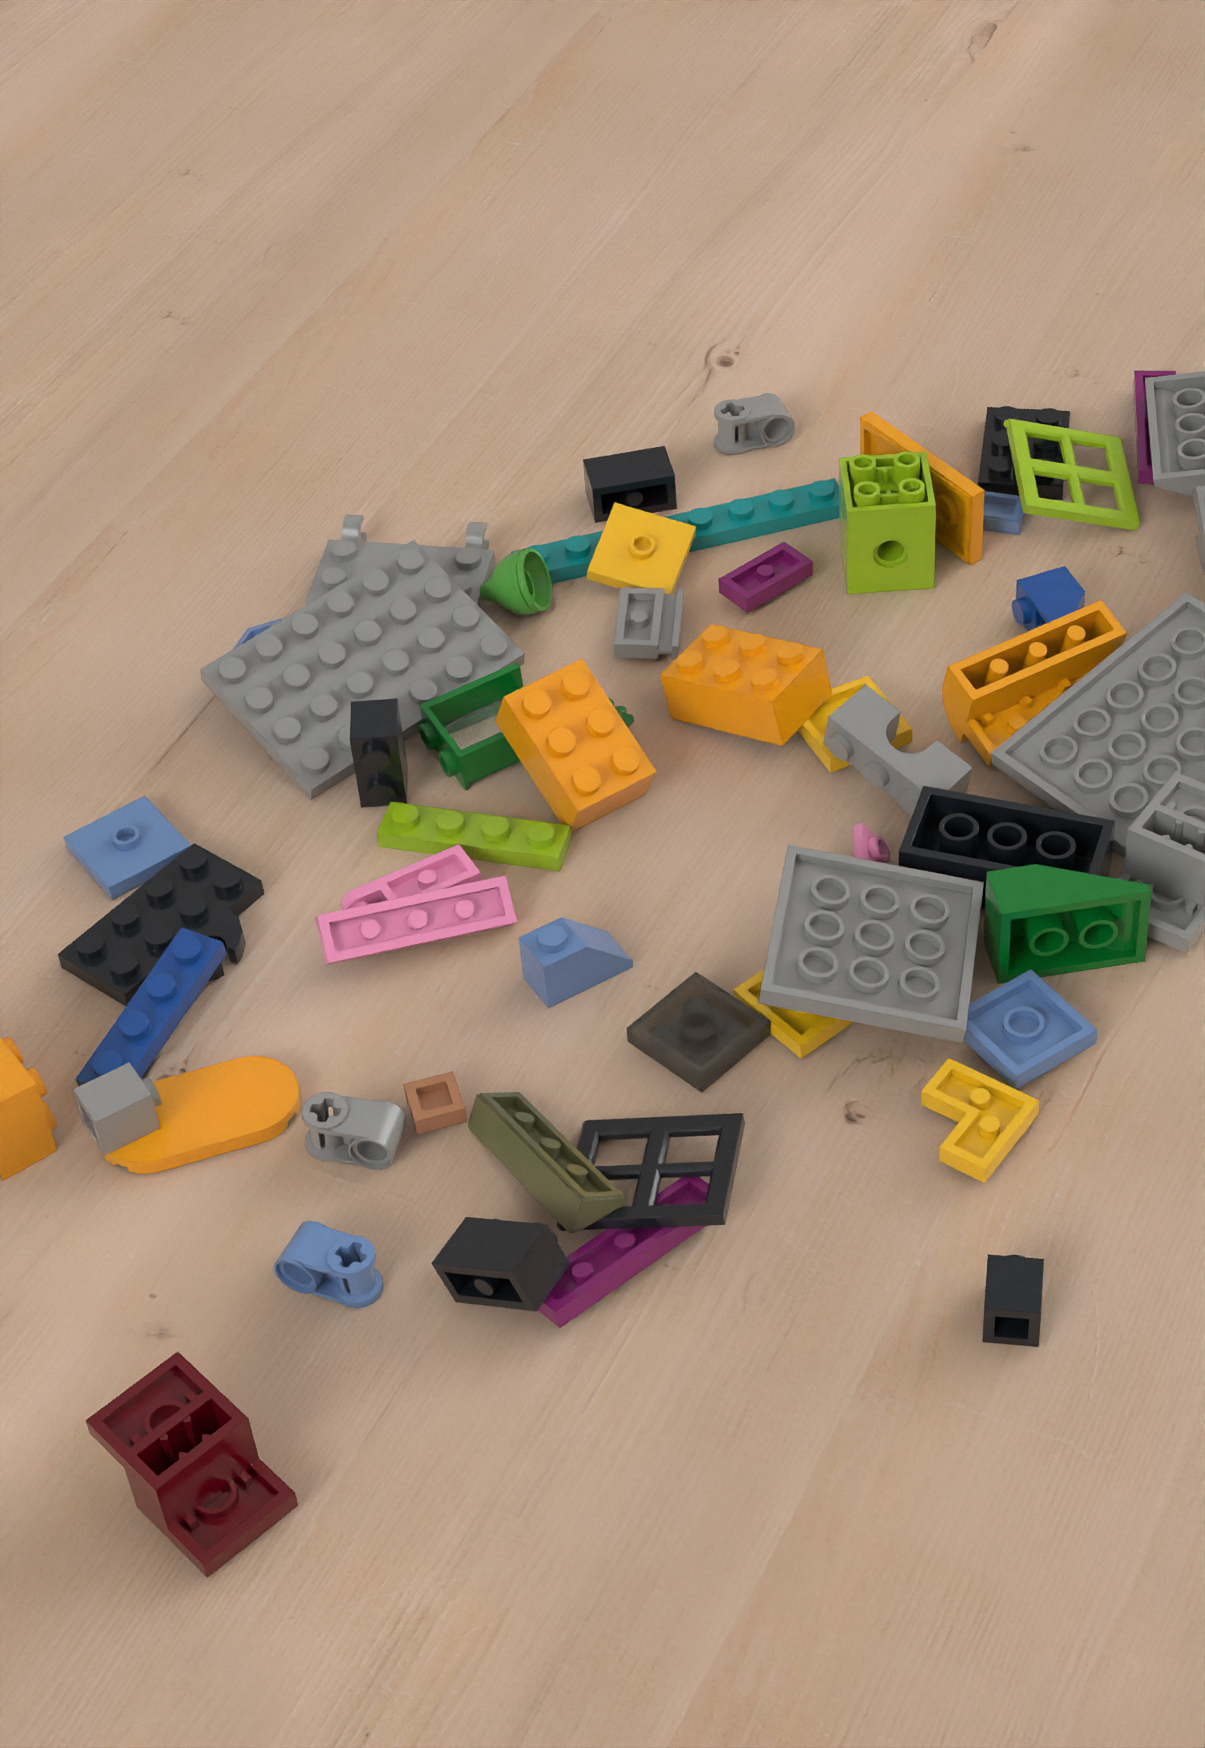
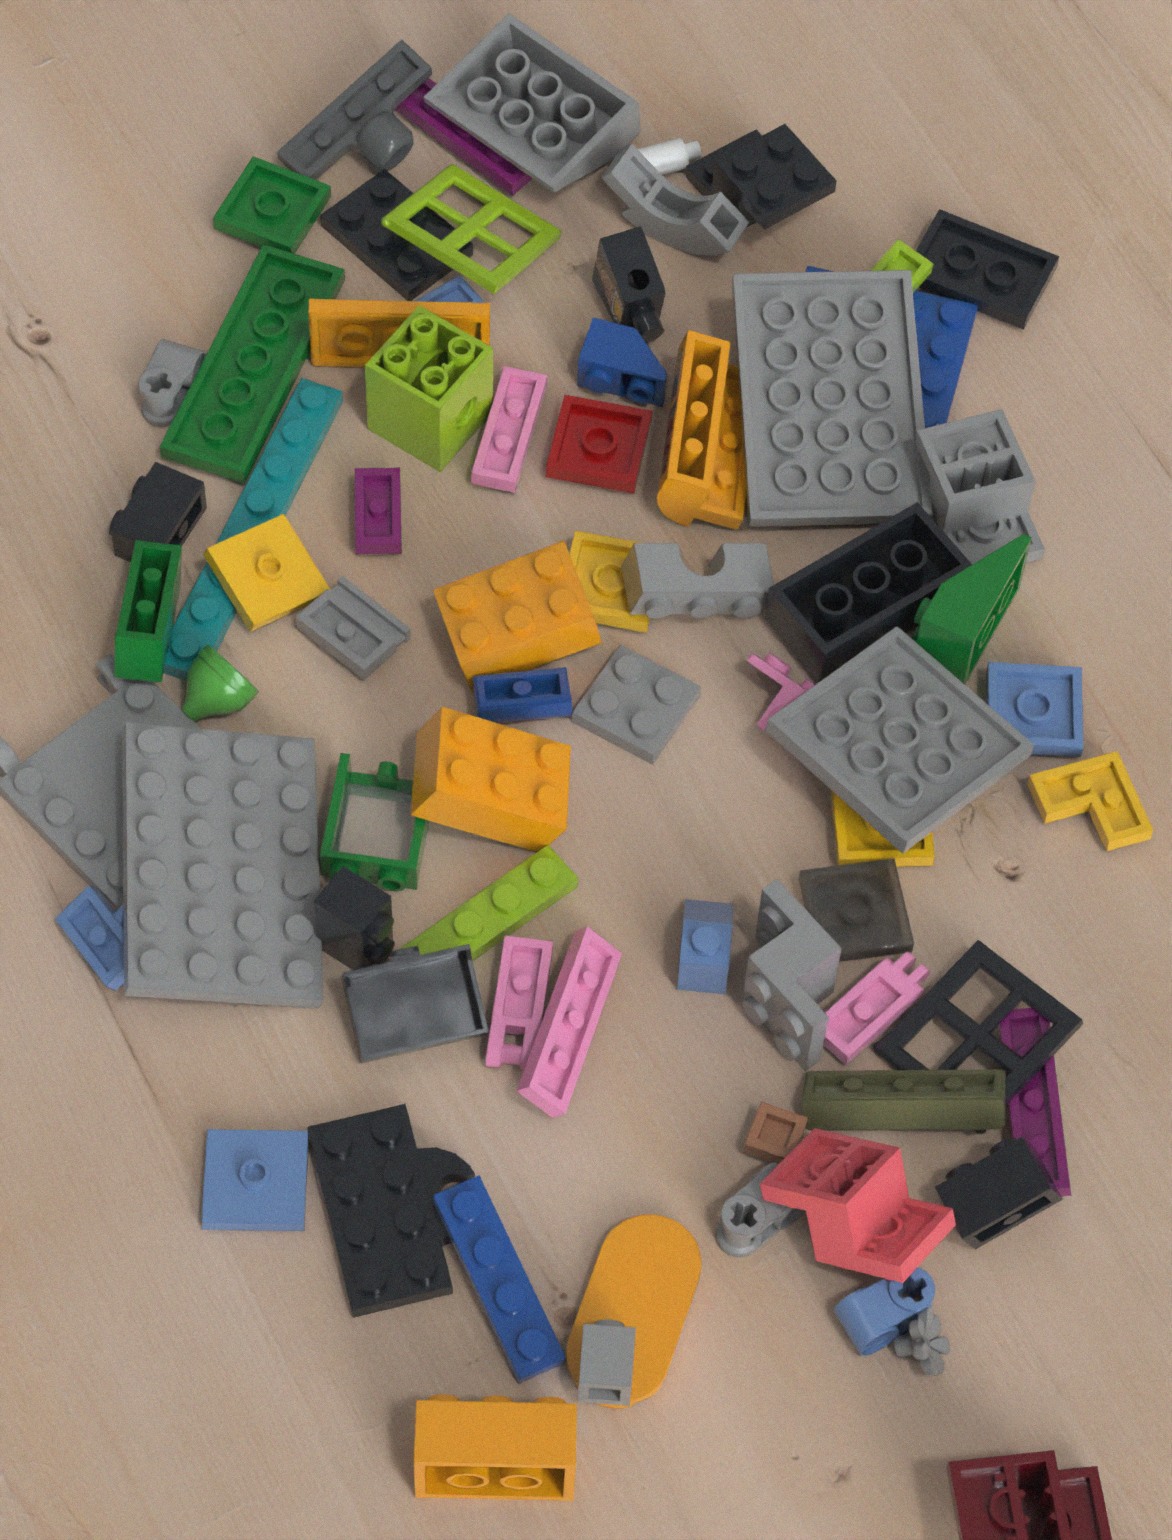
camera: 60 degrees left, 15 degrees up
(322, 1309) = (924, 1342): none -> light grey plant
(348, 827) = (414, 1002): none -> black container
(394, 1172) = (858, 1205): none -> coral bracket
(532, 510) = (148, 611): none -> green brick
(577, 1012) = (790, 976): none -> light grey bracket
(617, 1091) = (873, 1006): none -> bright pink hinge
(687, 736) = (522, 695): none -> blue brick
(757, 804) = (636, 704): none -> light grey plate
(805, 450) = (250, 365): none -> green plate
(921, 596) = (509, 429): none -> bright pink plate
(957, 636) = (599, 444): none -> red plate
(963, 383) = (272, 206): none -> green plate
(1091, 370) = (362, 118): none -> dark grey plate
(1127, 582) = (630, 282): none -> black torso

